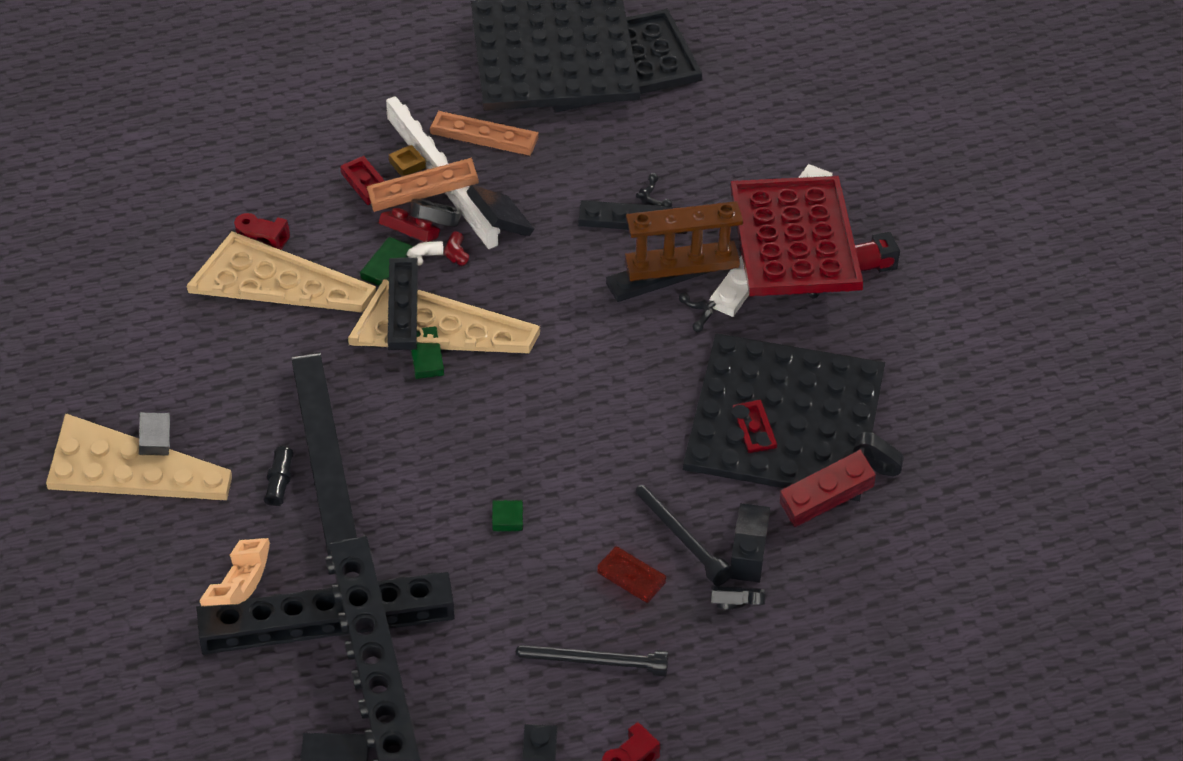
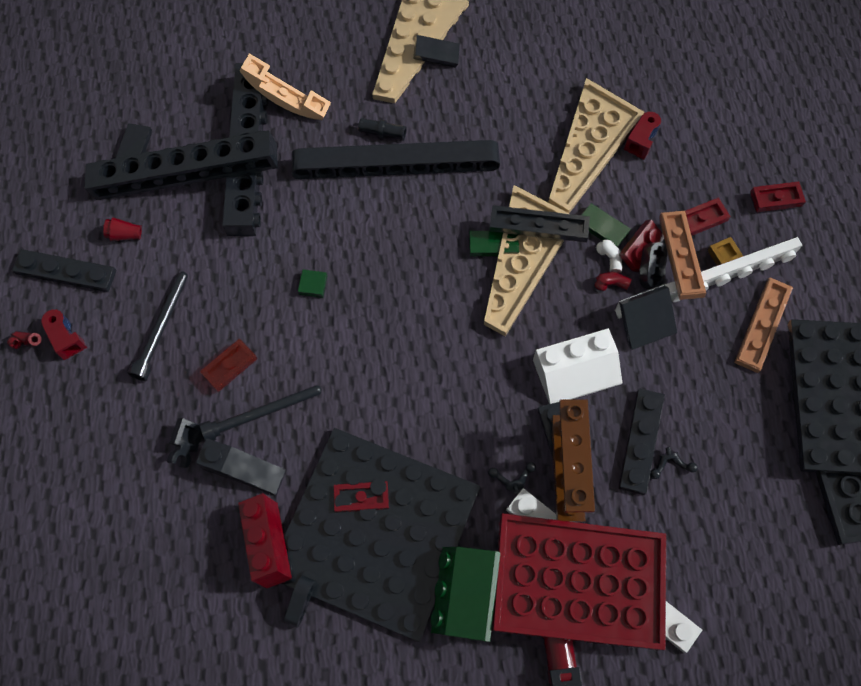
camera: 100 degrees right, 20 degrees up
(330, 123) = (777, 196): none -> dark red plate
(470, 730) = (121, 230): none -> dark red cone
(563, 267) = (578, 366): none -> white slope
(831, 317) = (465, 593): none -> dark green slope

